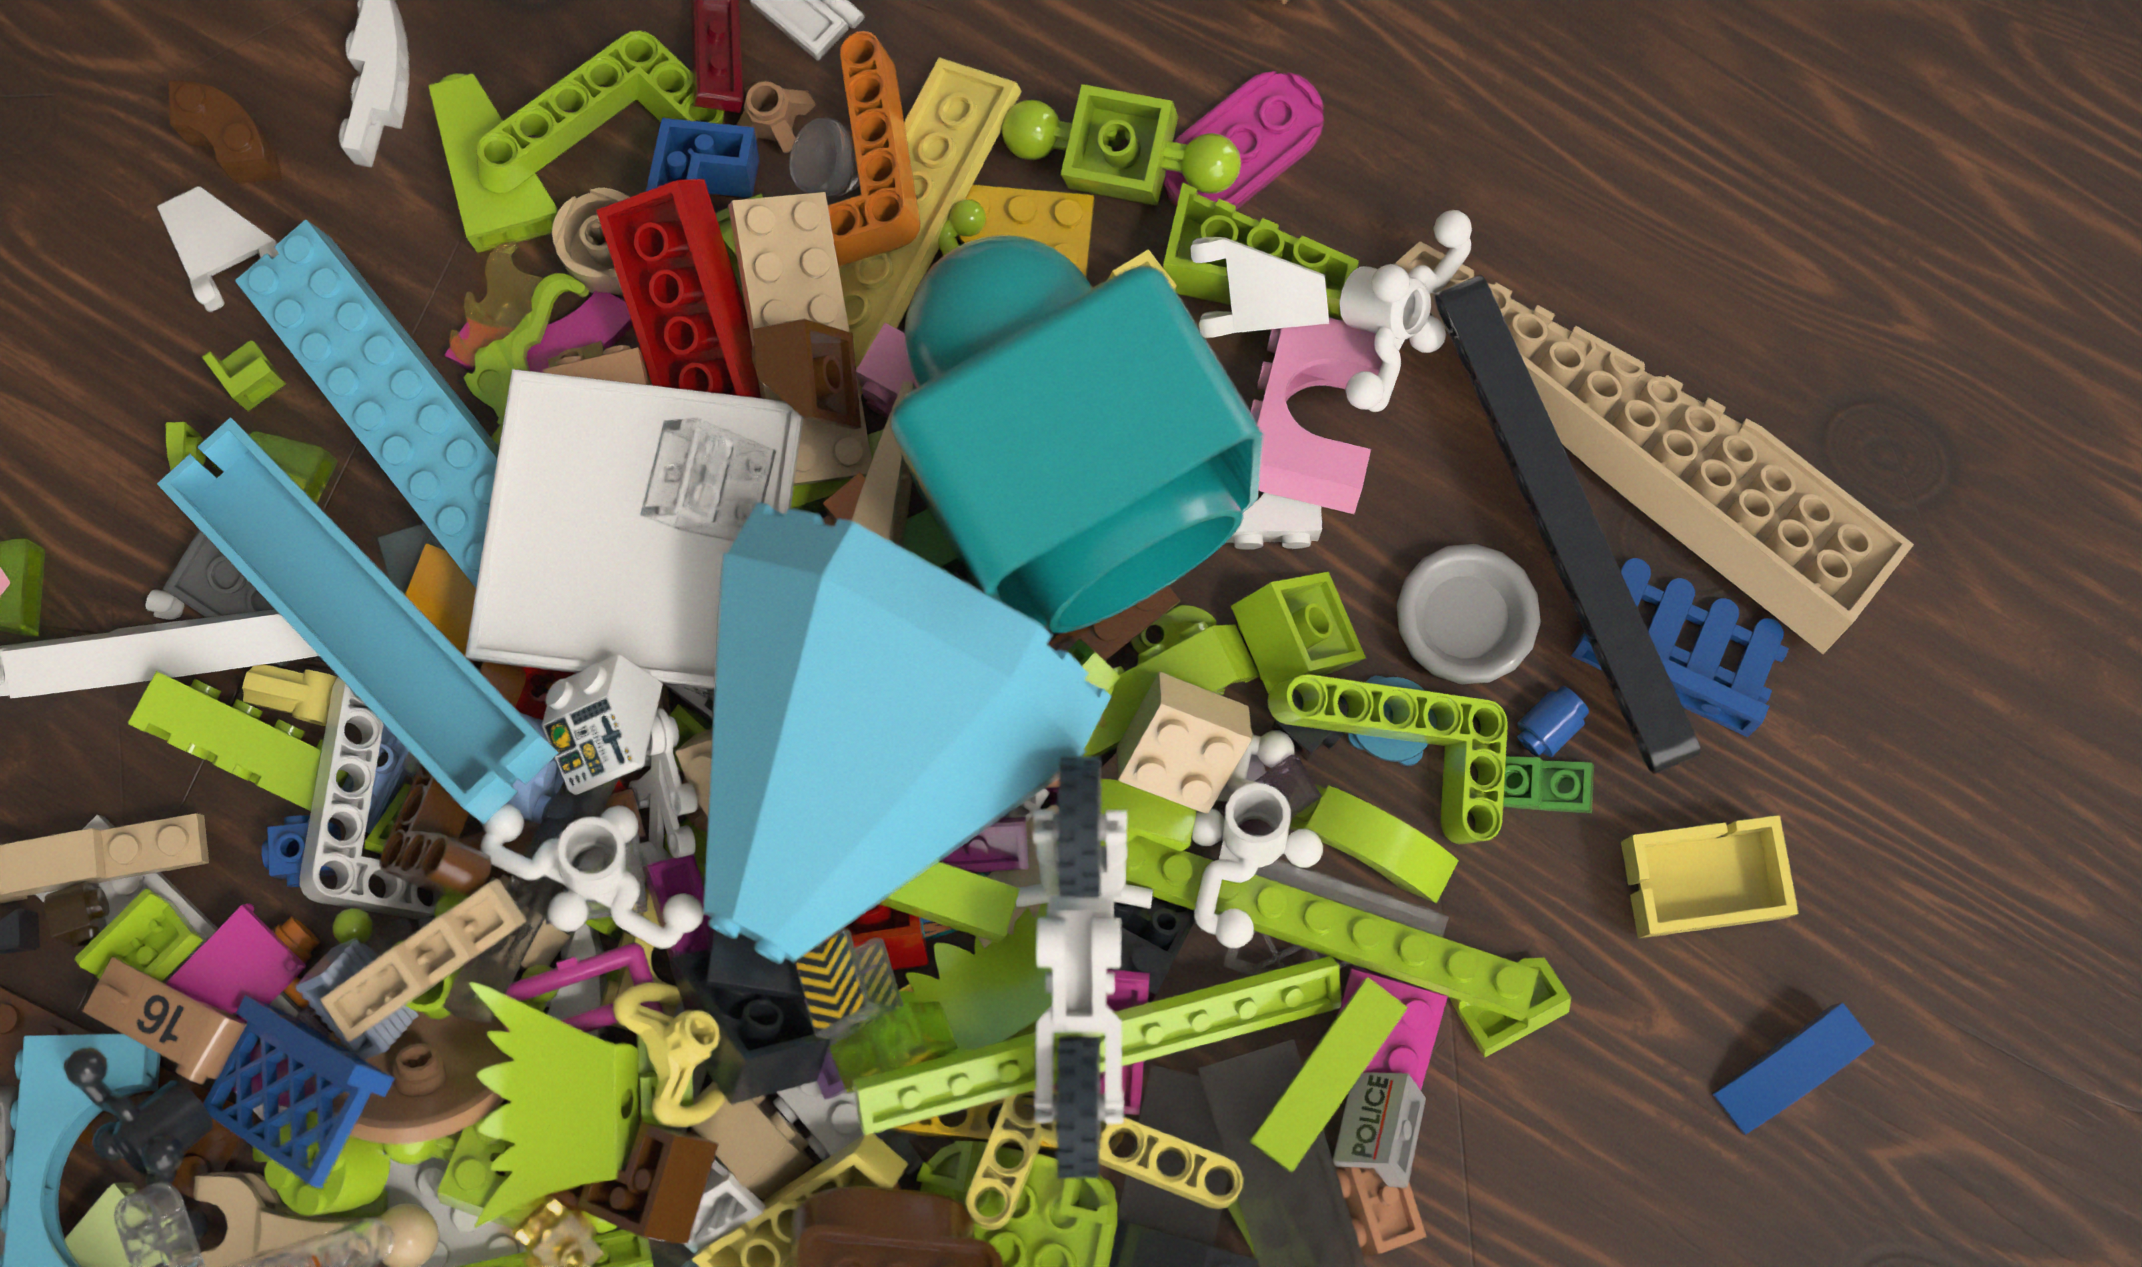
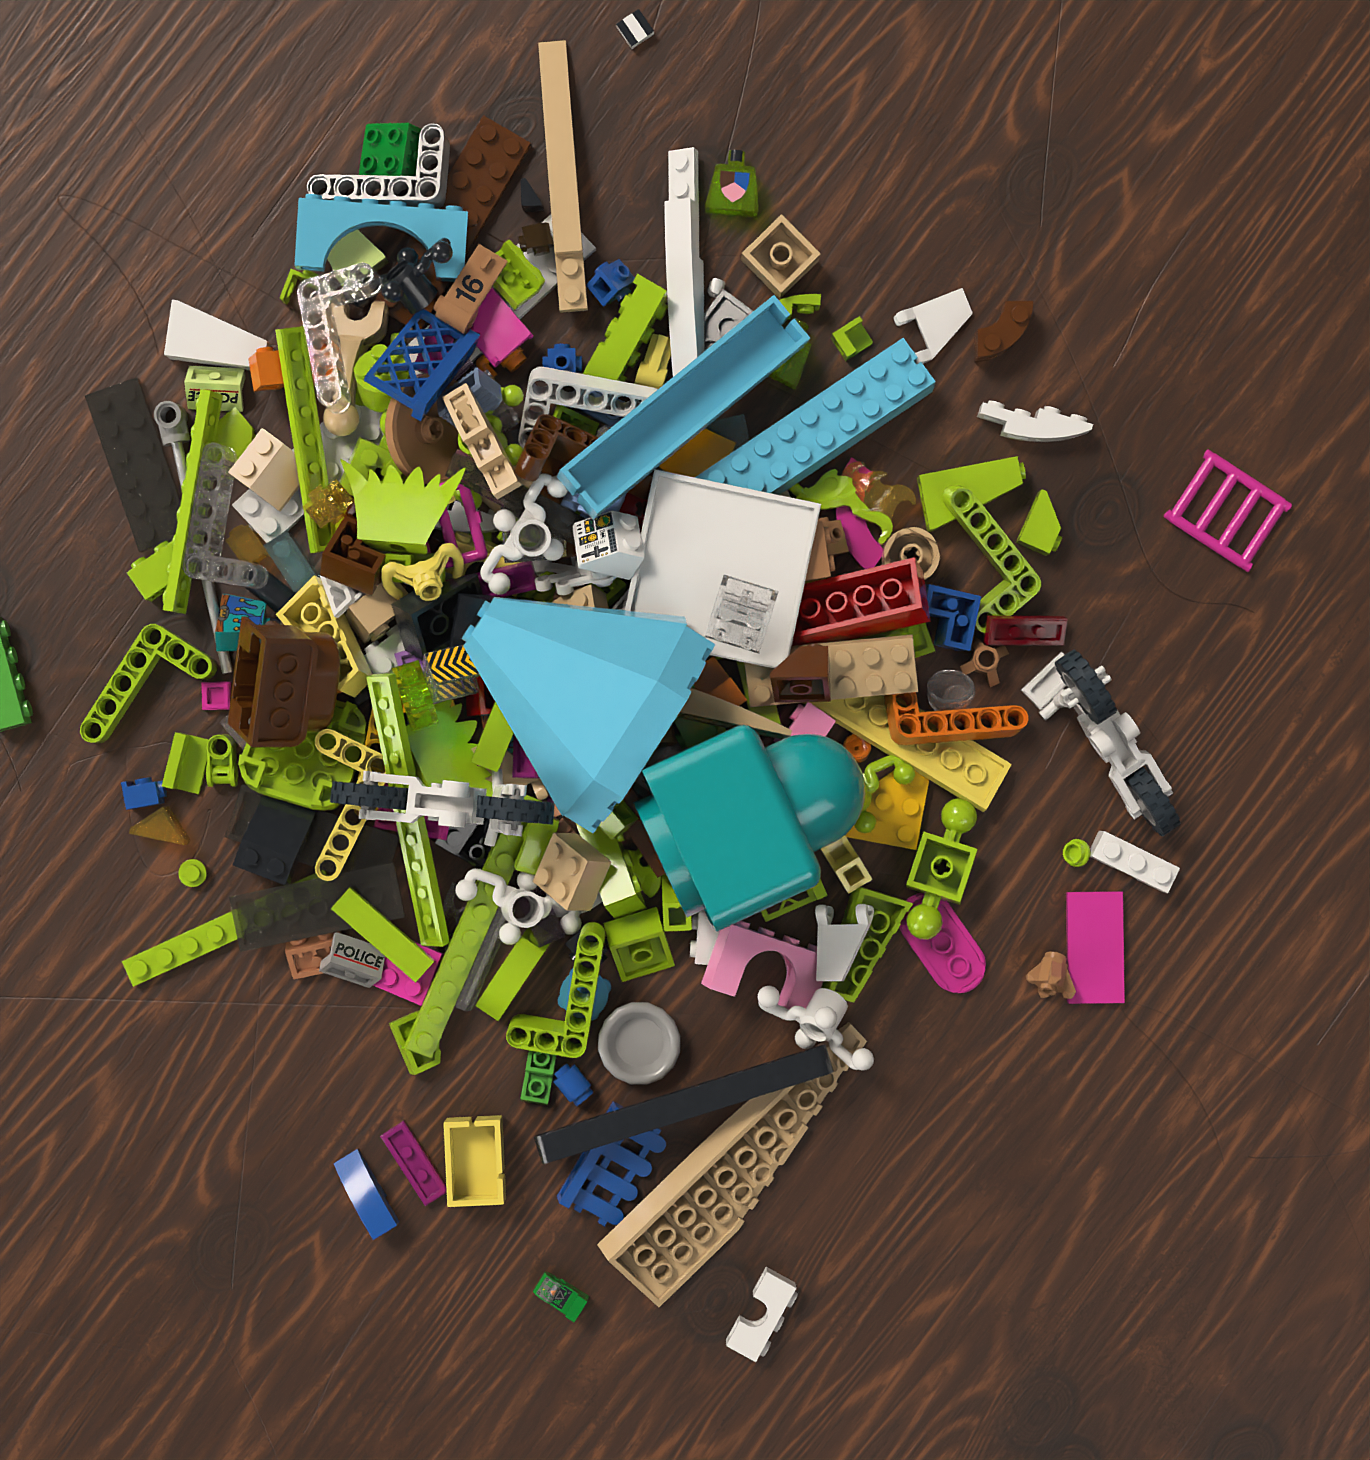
camera: 95 degrees right, 10 degrees up
(103, 496) = (780, 256): none -> tan brick
(153, 777) = (611, 282): none -> blue brick
(542, 44) = (1041, 526): none -> lime slope
(1227, 574) = (673, 914): none -> lime slope
(1724, 988) = (414, 1162): none -> magenta tile
(1920, 708) = (561, 1295): none -> leg
(1938, 382) = (752, 1337): none -> white arch

